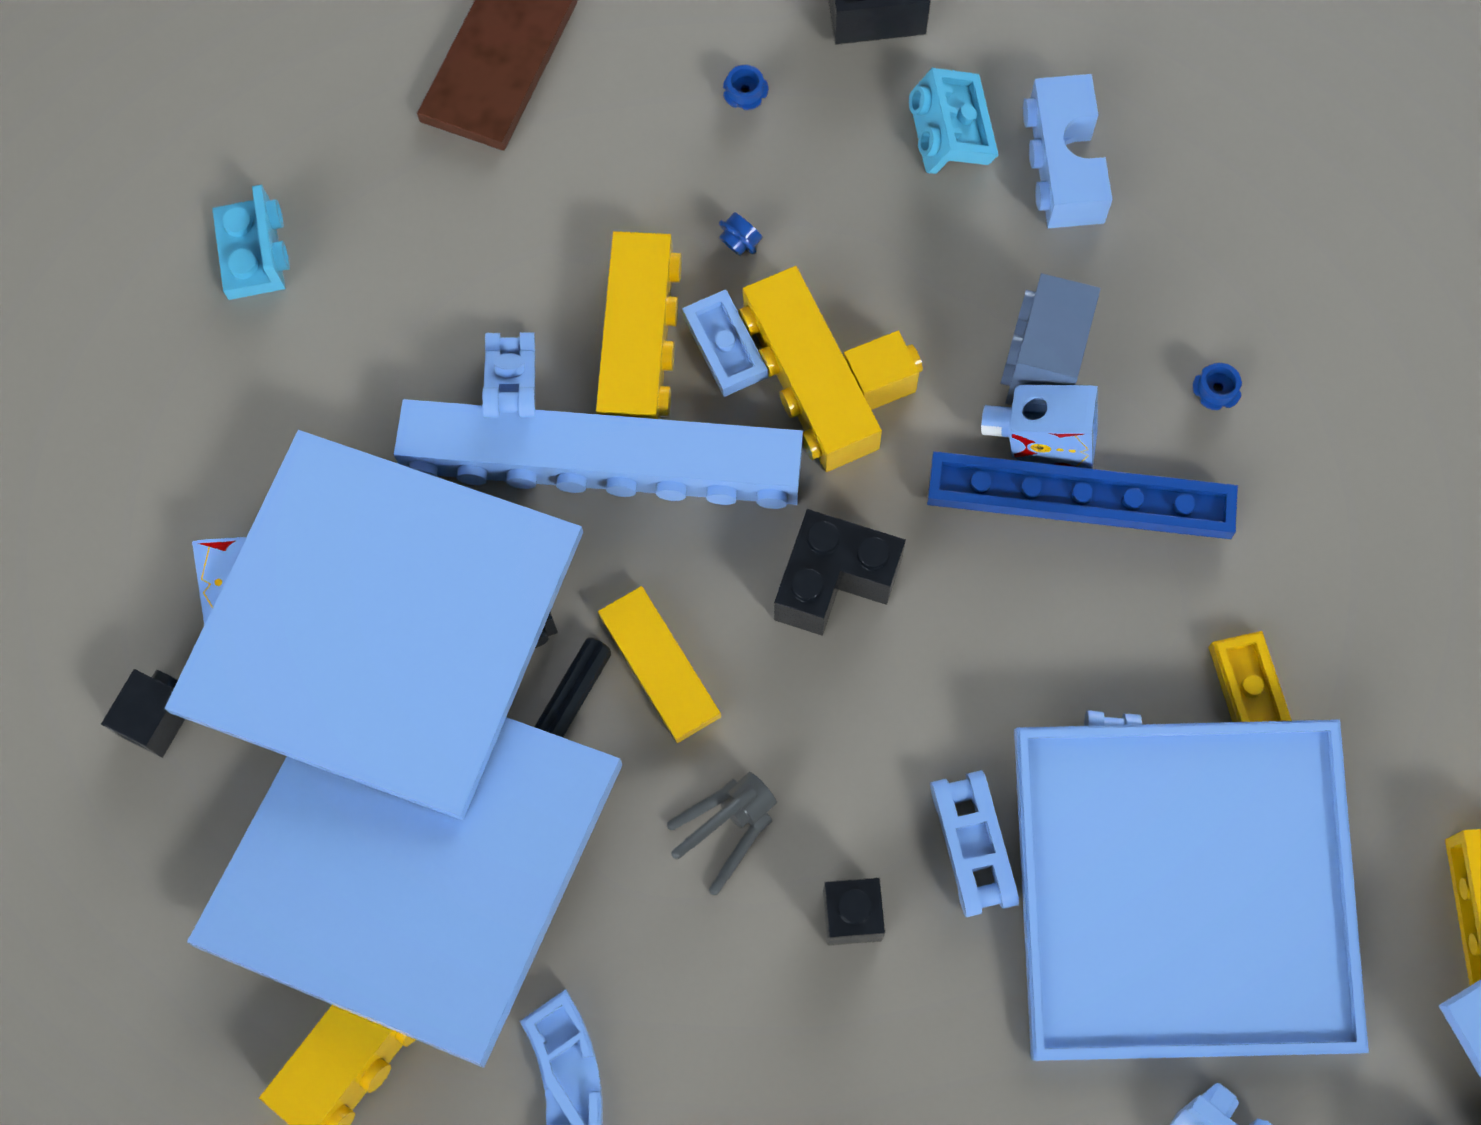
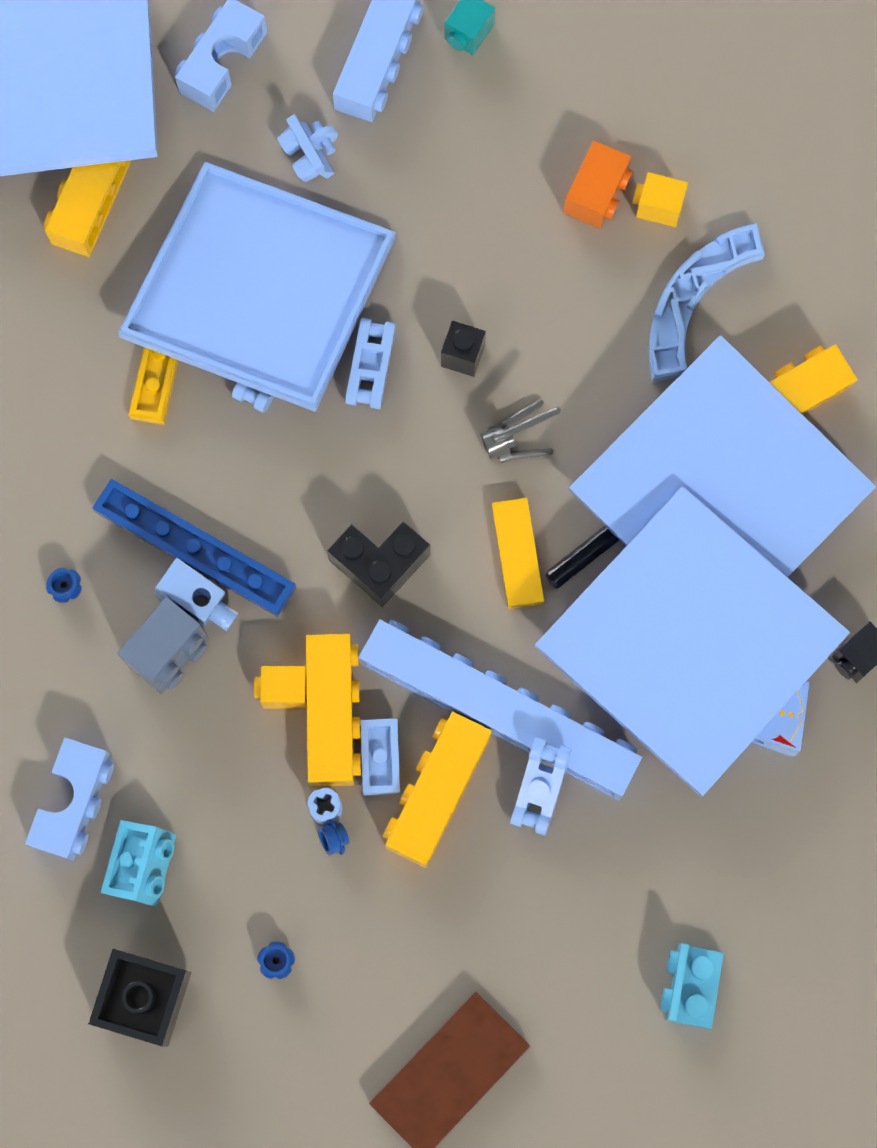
camera: 160 degrees left, 5 degrees up
(763, 245) = (322, 795): none -> light blue bush

